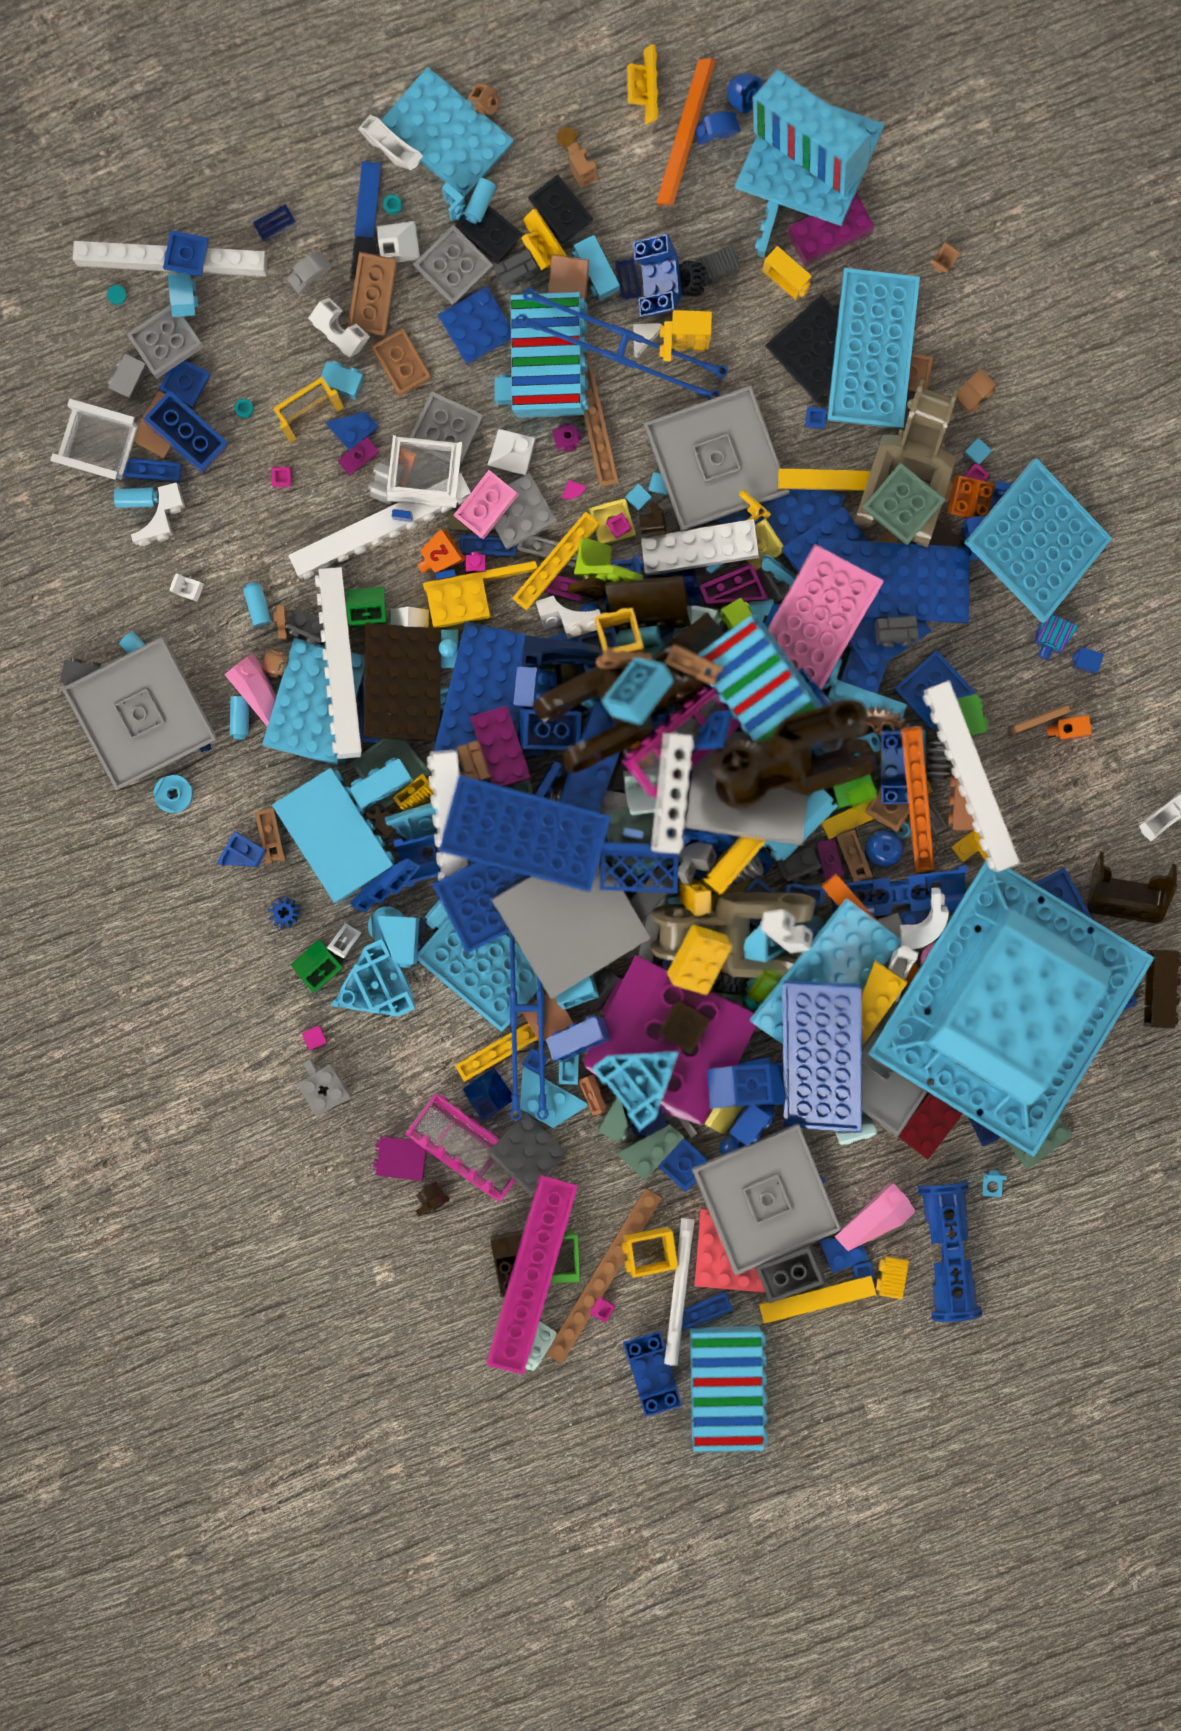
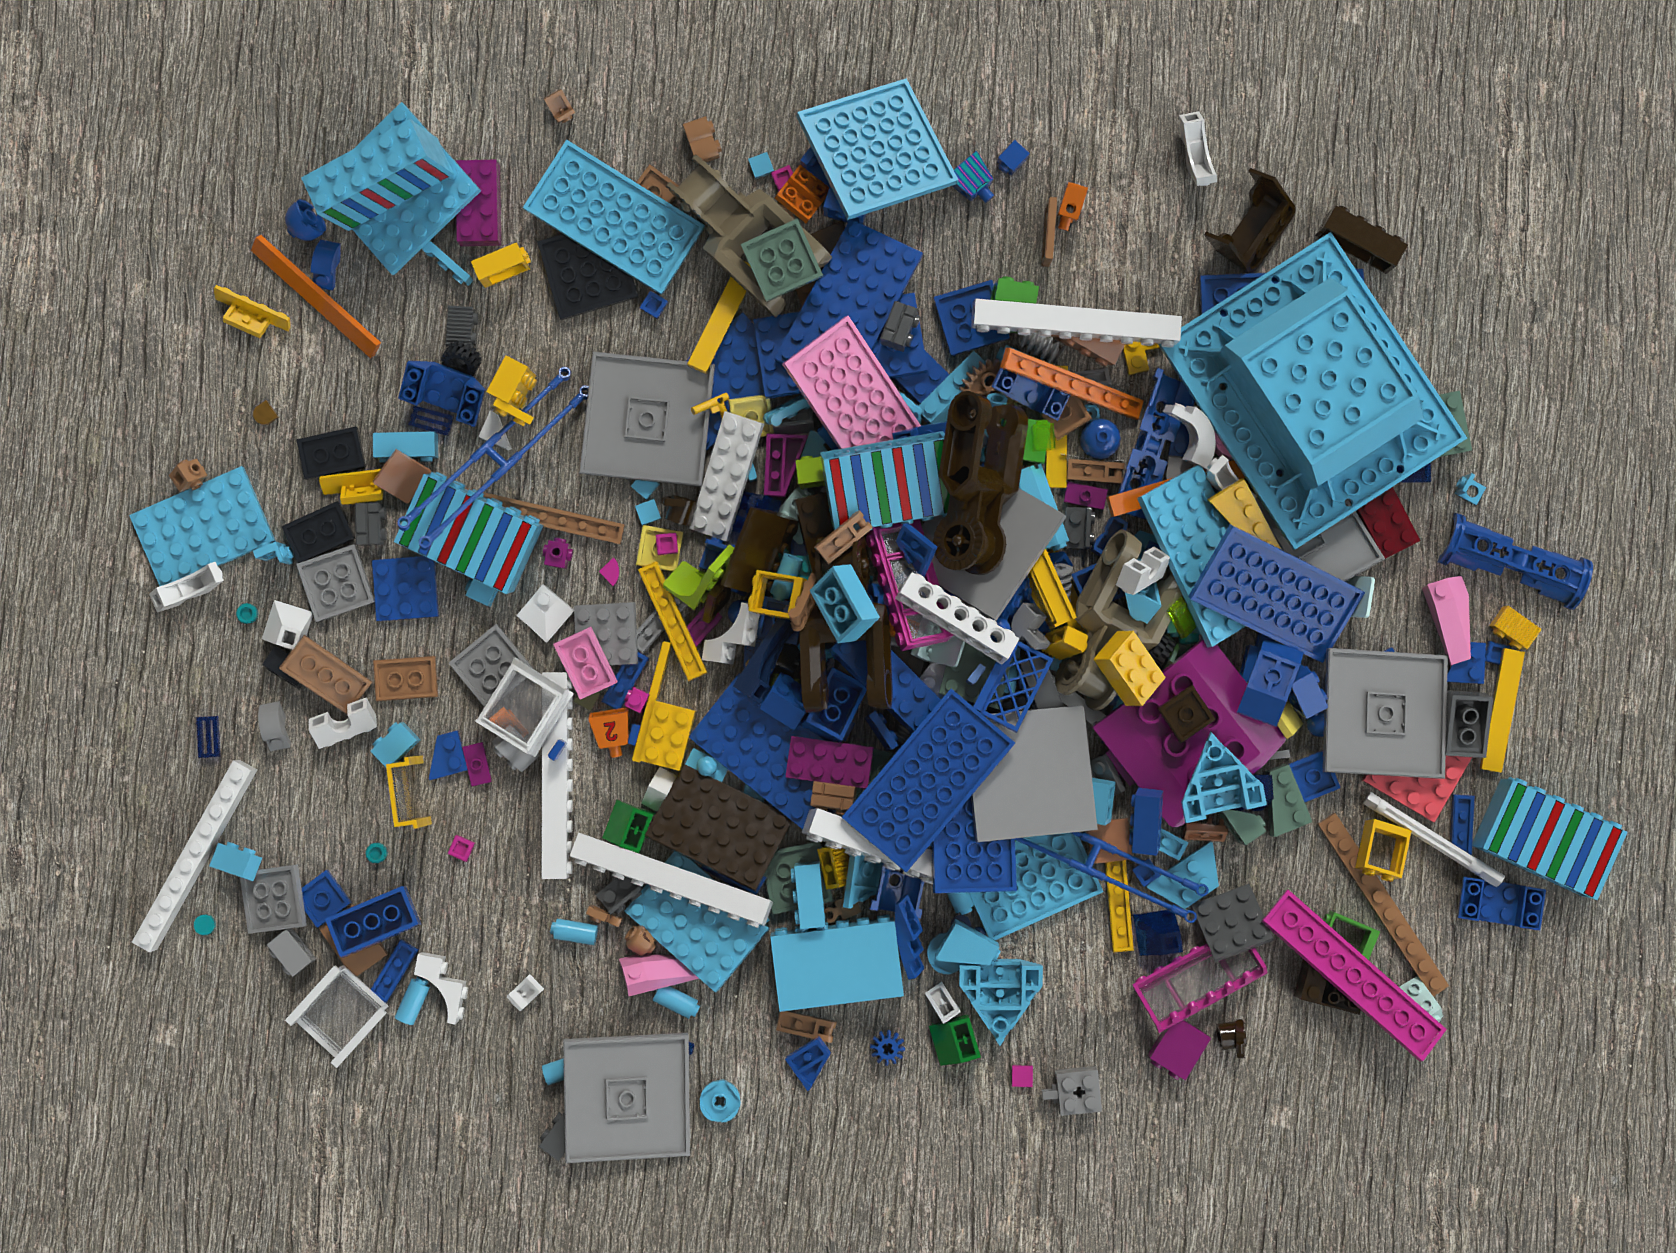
camera: 65 degrees left, 0 degrees up
(186, 253) = (198, 838): blue plate -> none
(367, 200) = (231, 635): blue tile -> none
(480, 200) = (285, 527): medium azure brick -> none
(582, 170) = (301, 414): medium nougat hips -> none
(602, 1309) = (1415, 921): dark pink tile -> none

